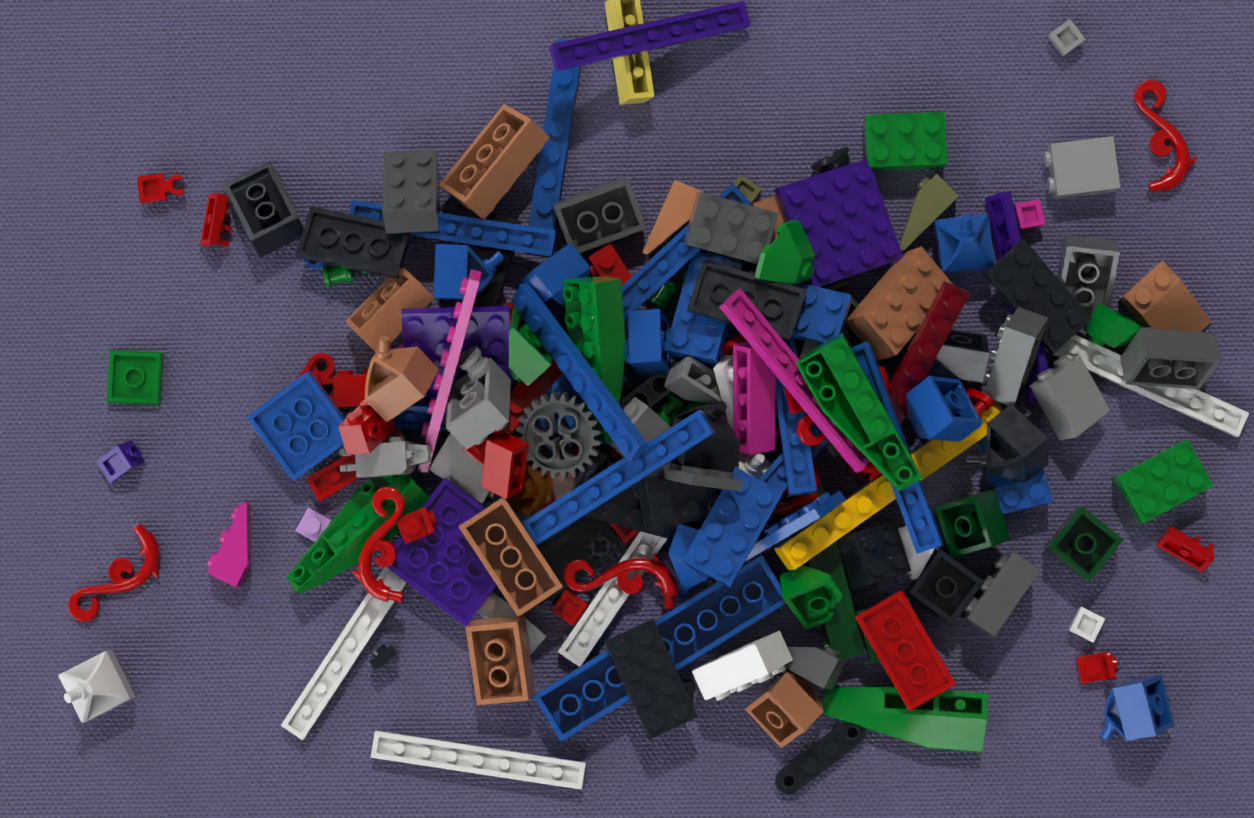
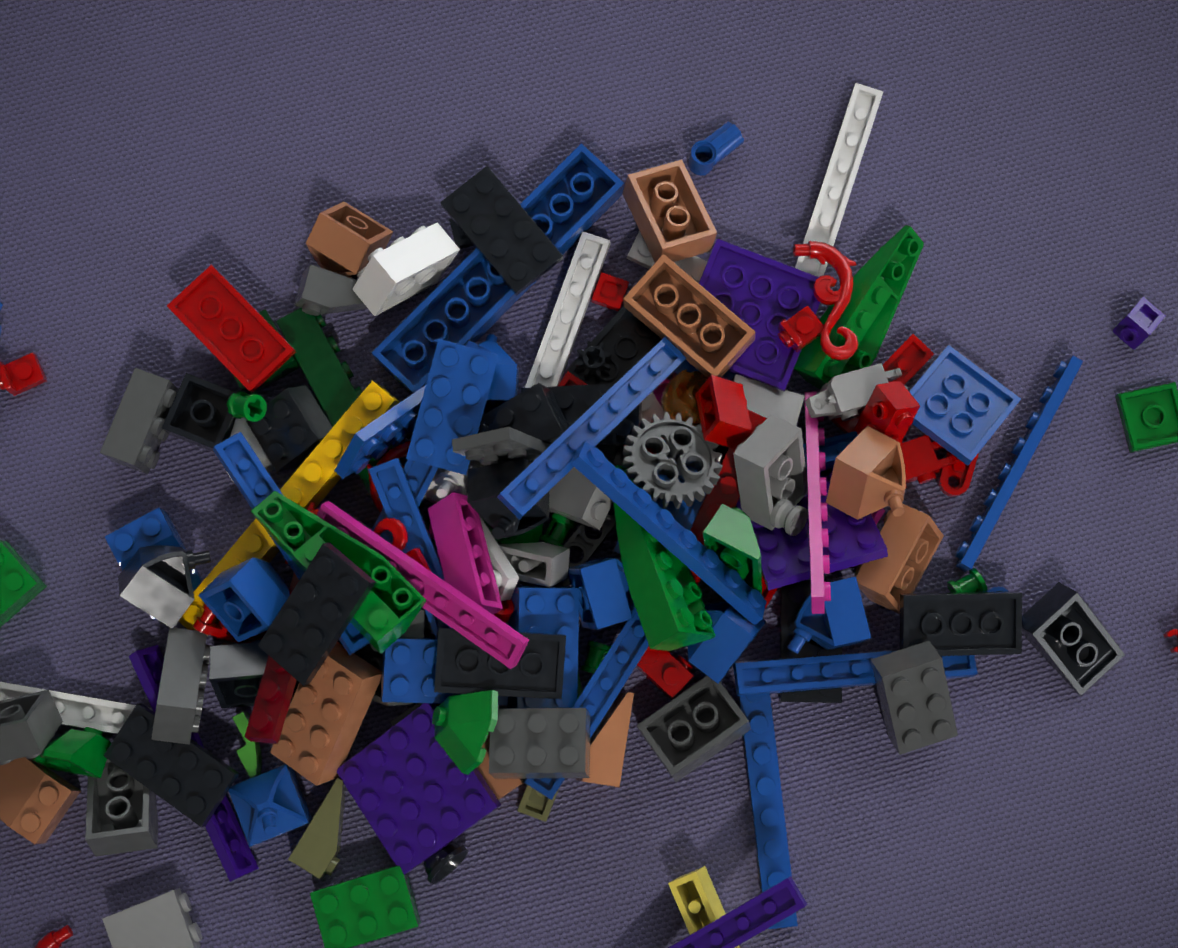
camera: 160 degrees right, 5 degrees down
(96, 686) = (1089, 81): white piece -> none
(119, 585) = (1098, 195): red plant -> none
(216, 210) = (1123, 623): red plate -> none
(234, 554) = (985, 257): dark pink slope -> none
(255, 375) = (1011, 474): none -> blue plate
(312, 524) = (911, 309): lavender plate -> none
(383, 655) = (795, 190): black plate -> none
(441, 713) = (715, 147): none -> blue piece
(478, 759) = (664, 110): white plate -> none
(494, 161) = (830, 757): nougat brick -> none
(656, 567) = (564, 342): red plant -> none
(810, 595) = (351, 362): green slope -> none
(818, 757) = (300, 207): black plate -> none
(887, 375) = (316, 613): none -> black plate
(903, 576) = (250, 407): none -> green bush
(943, 723) = (163, 271): green wedge -> none
(972, 286) = (251, 753): none -> bright green slope
(972, 523) = (188, 489): dark green brick -> none
(1029, 215) = (202, 860): dark pink plate -> none
(1069, 397) = (109, 658): light grey brick -> none
(1083, 543) = (61, 500): dark green brick -> none
(1086, 624) = (40, 416): white plate -> none

